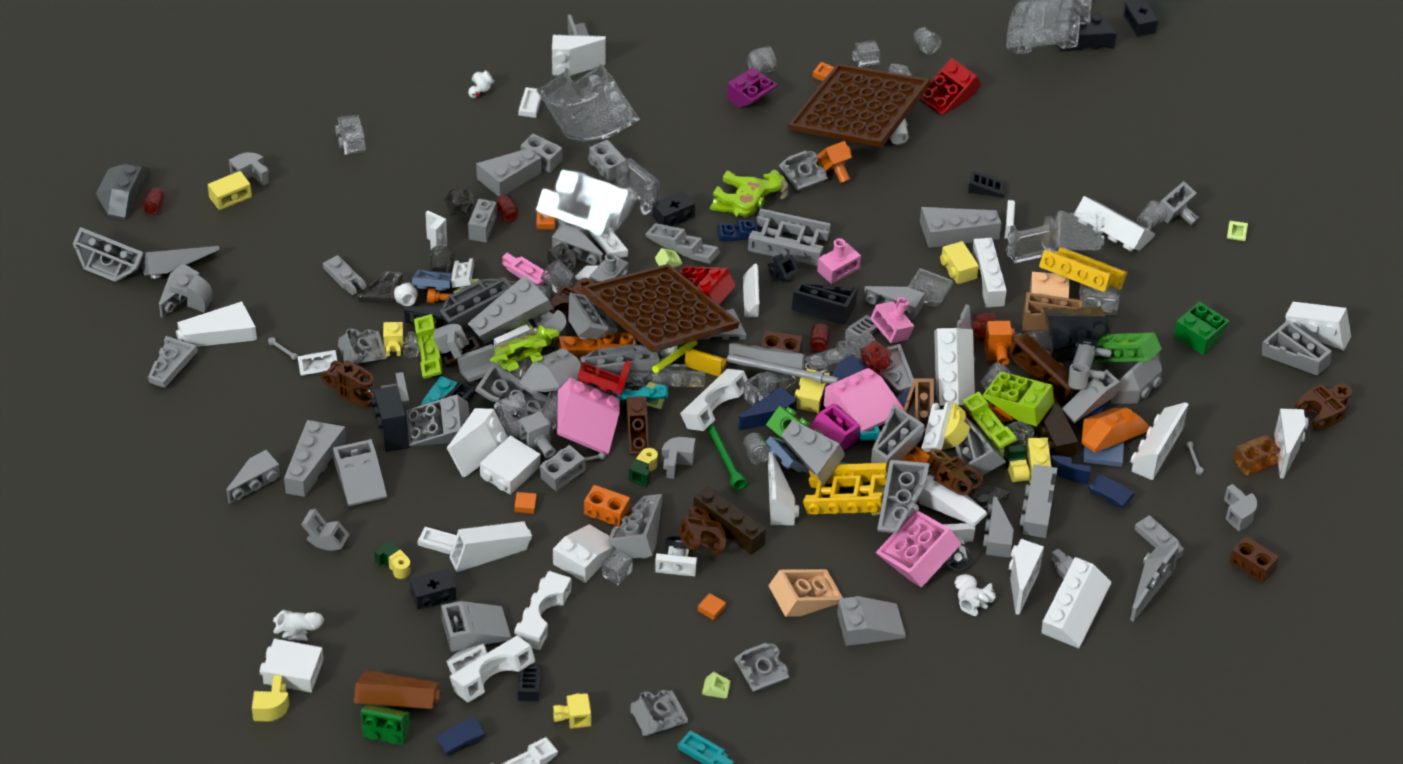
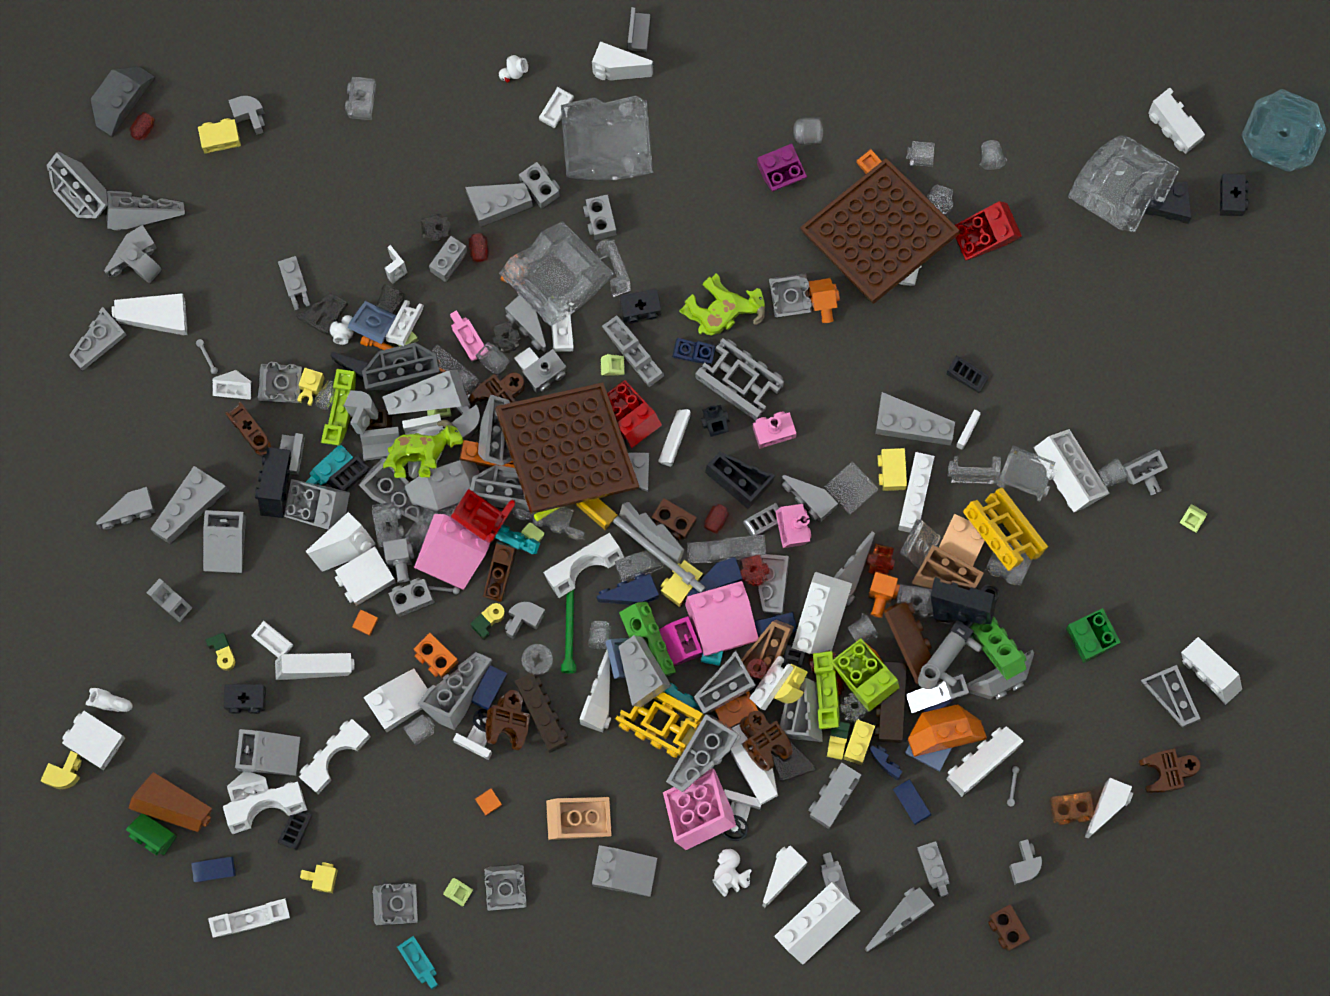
camera: 25 degrees right, 30 degrees up
(669, 516) = (489, 687): none -> dark blue slope
(697, 480) = (545, 655): none -> clear gear
(920, 412) = (752, 673): none -> clear red brick
(1000, 531) = (784, 816): light grey slope -> none
(1012, 301) = (919, 543): none -> clear tile

